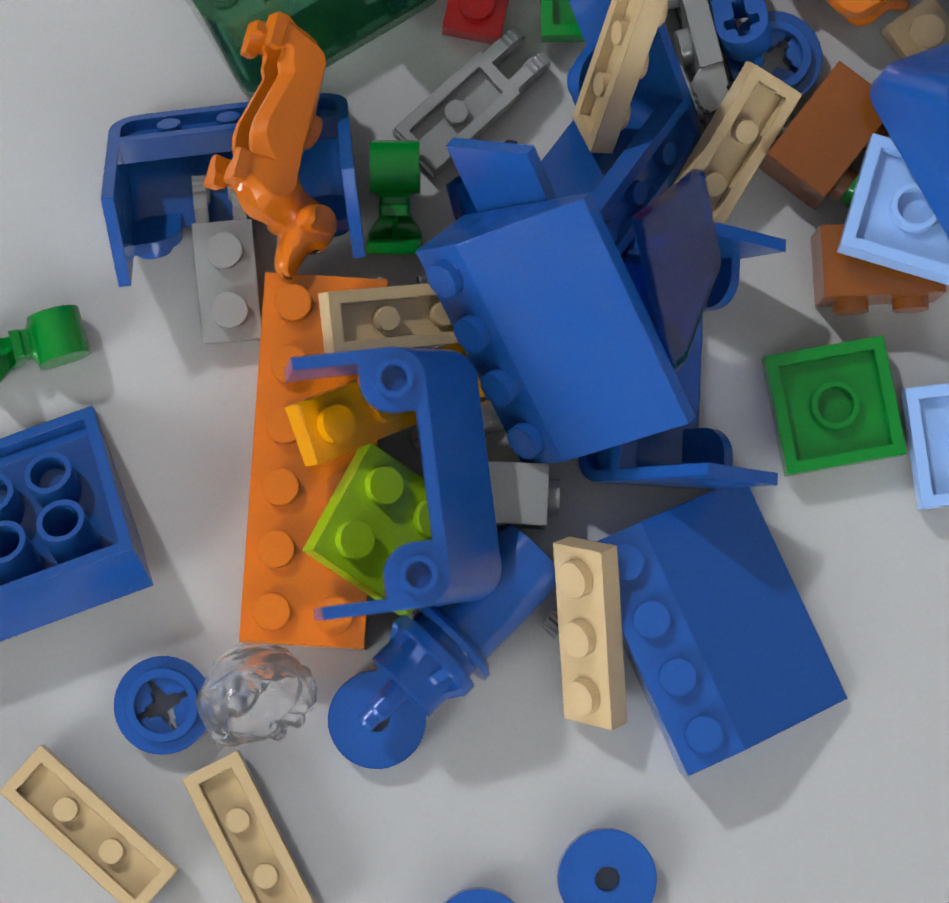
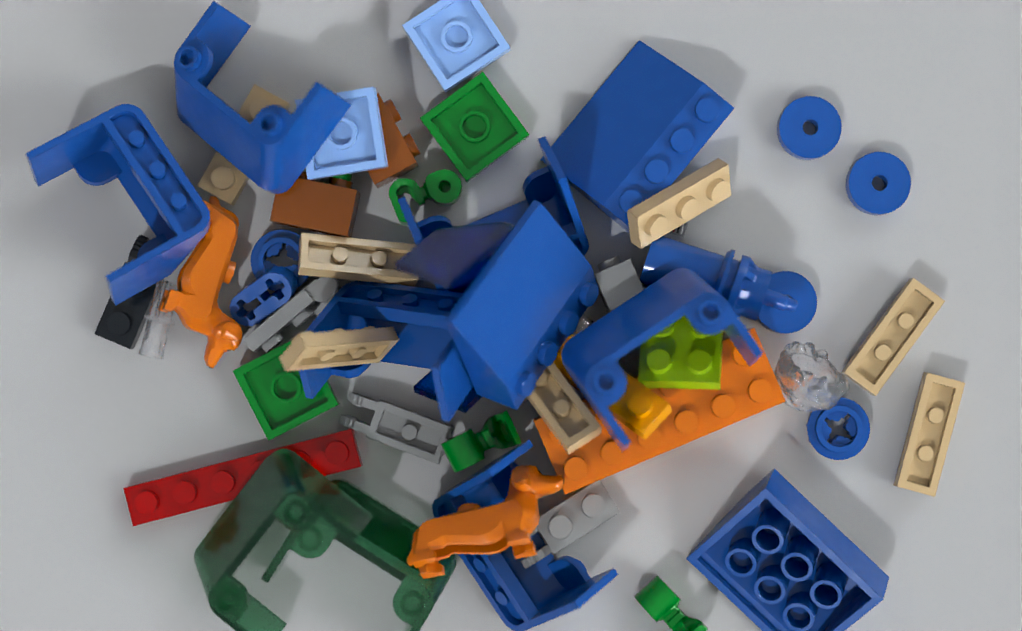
camera: 115 degrees left, 5 degrees up
(775, 315) = (440, 187): none -> green leg

